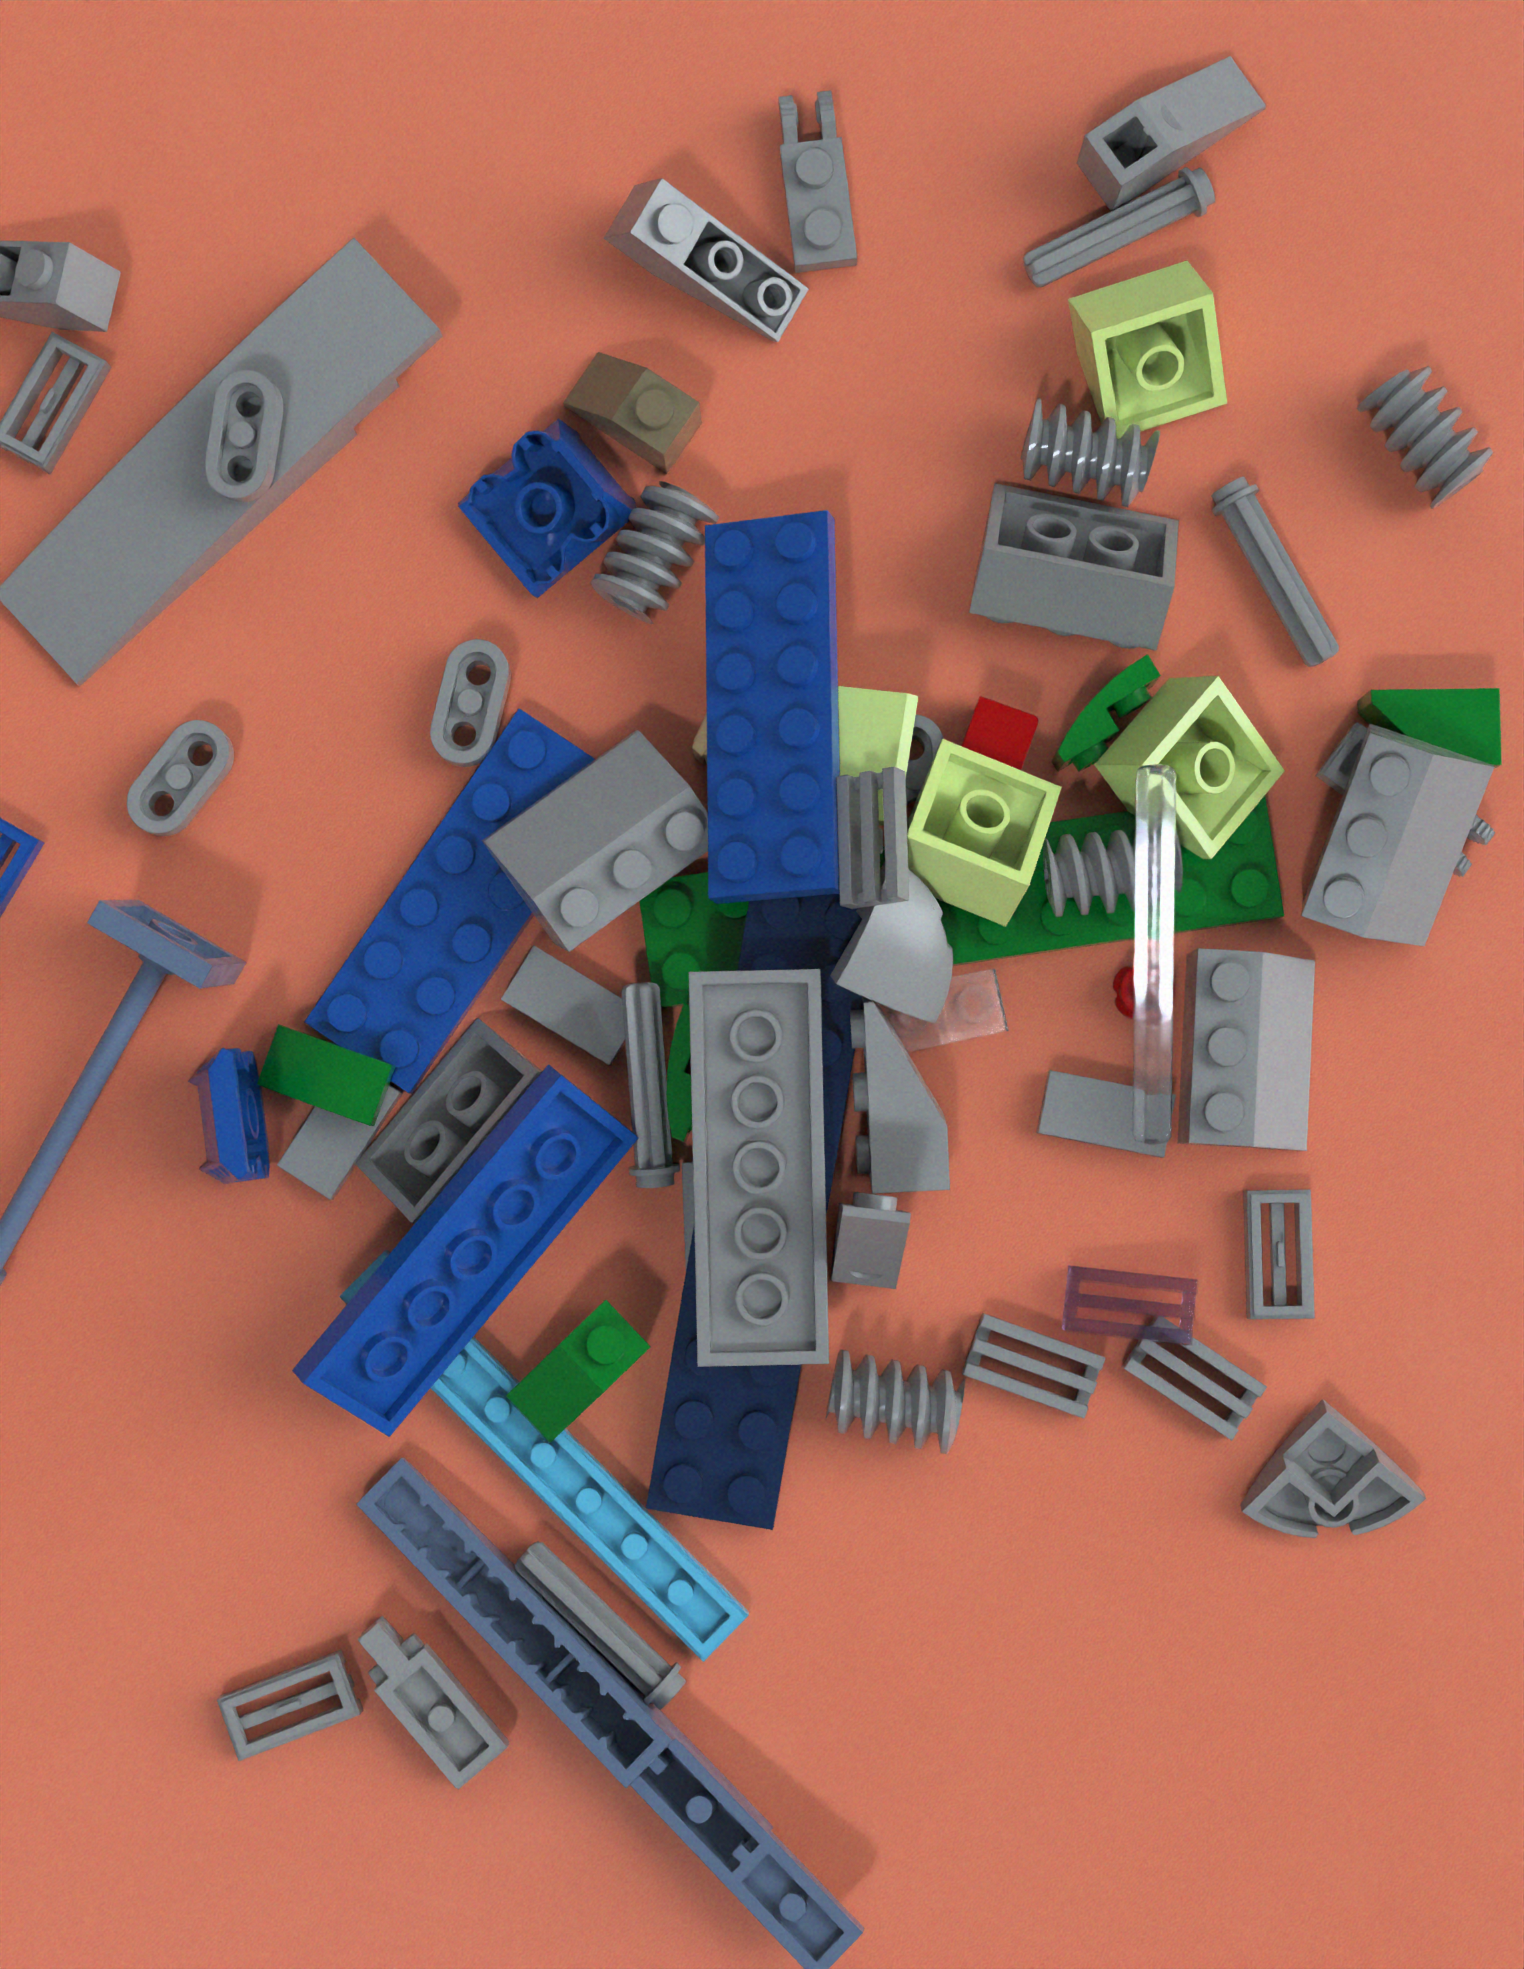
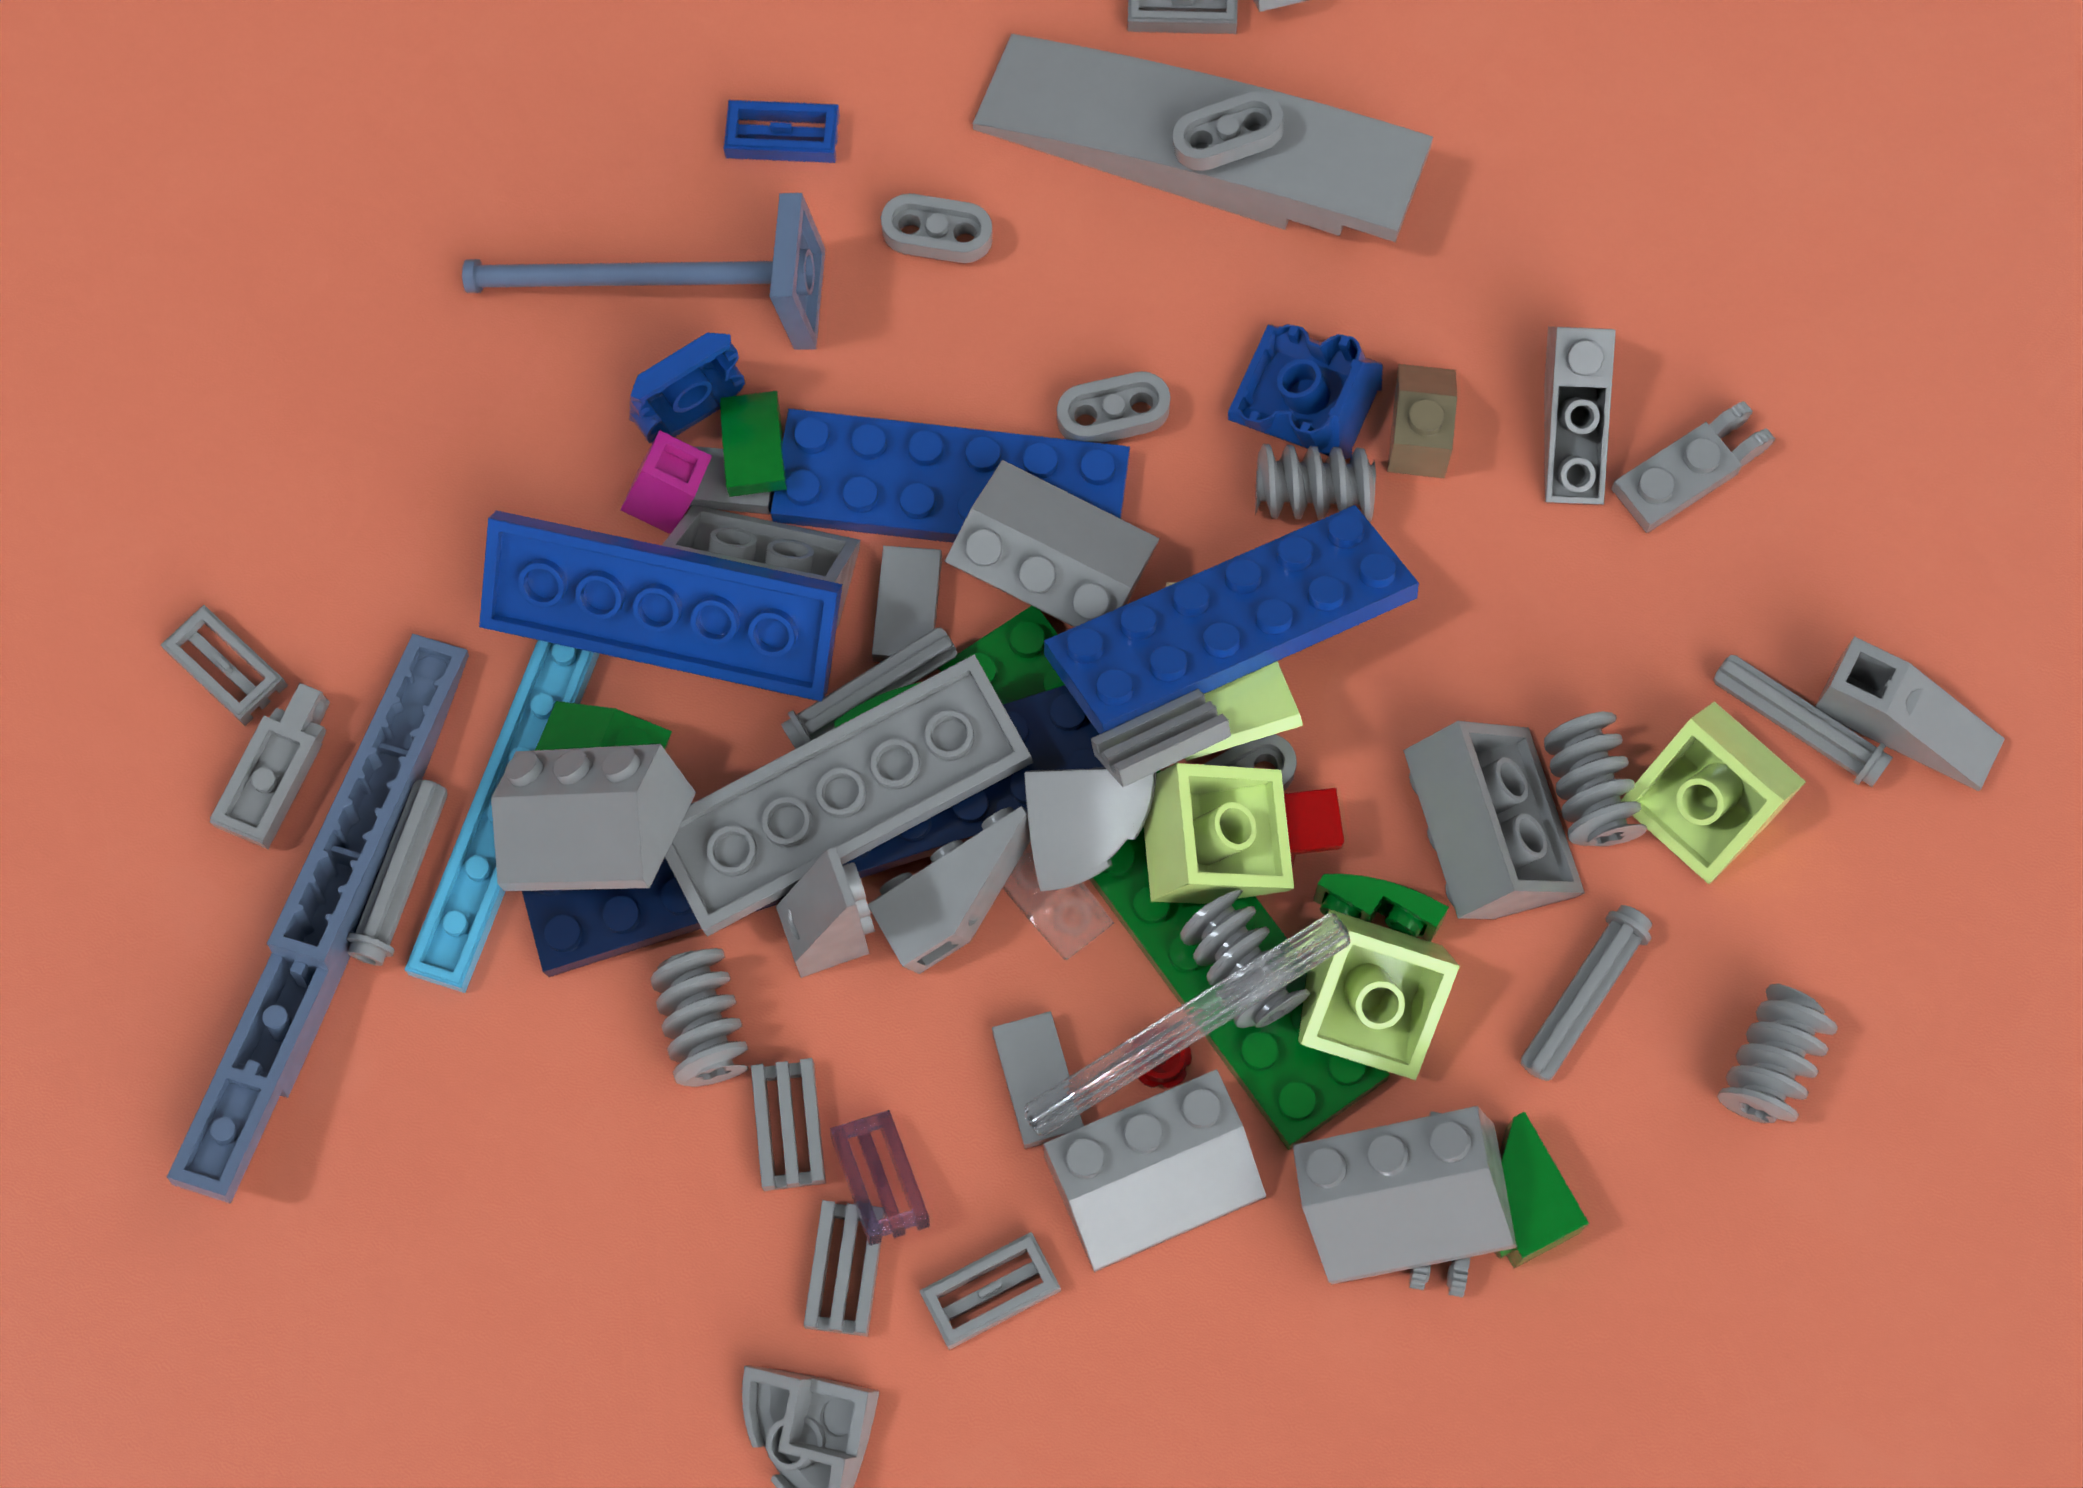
camera: 60 degrees right, 15 degrees down
(325, 1181) = (666, 482): none -> dark pink panel
(661, 1424) = (587, 817): none -> light grey slope

